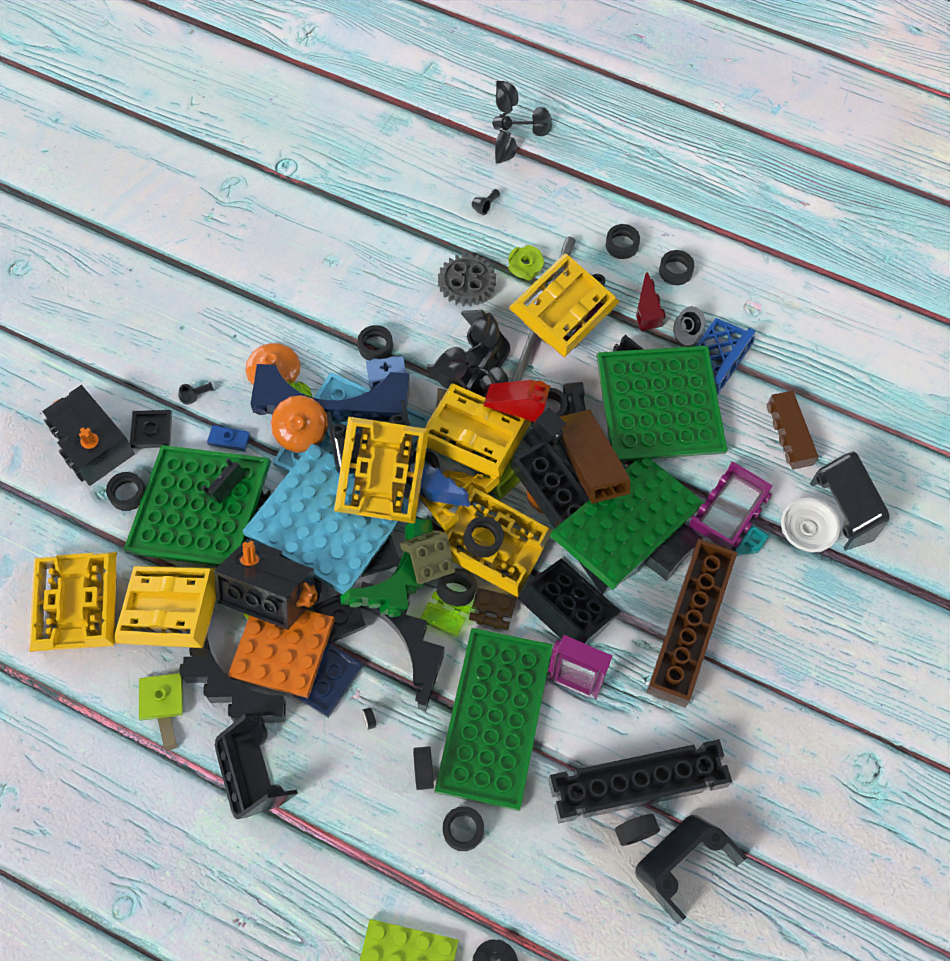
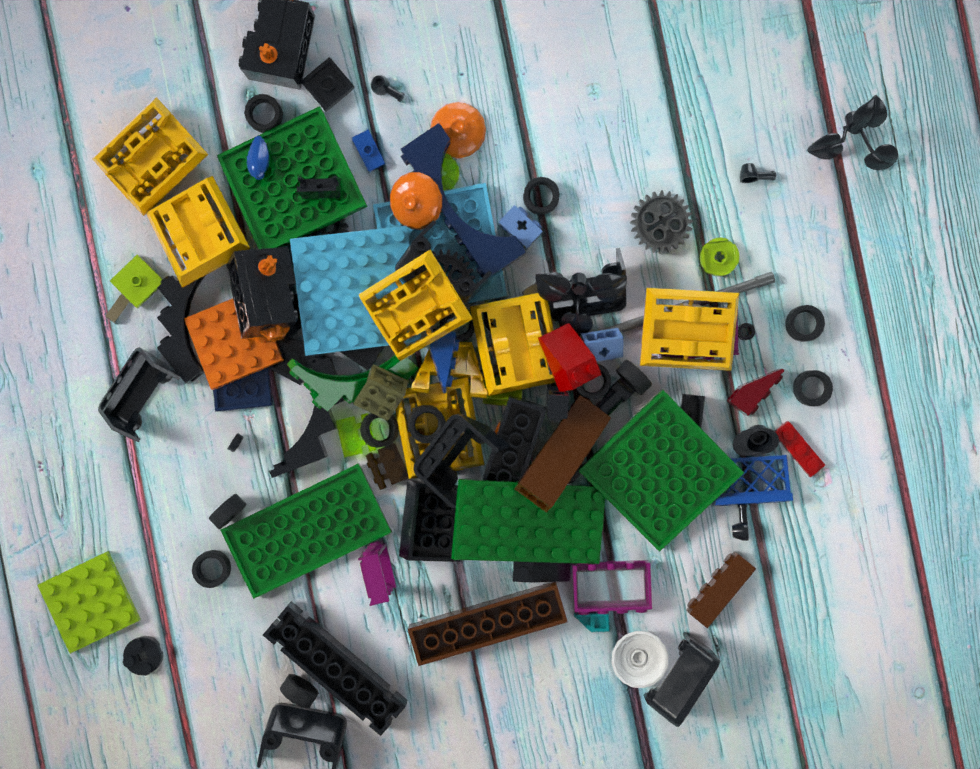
camera: 55 degrees right, 25 degrees up
(157, 514) = (258, 158): none -> blue arm
(514, 534) = (435, 462): none -> black windscreen
(529, 369) = (604, 343): none -> medium blue brick
(575, 365) = (634, 377): none -> black tyre
(720, 306) = (799, 449): none -> red plate
(753, 383) = (740, 530): none -> black bar

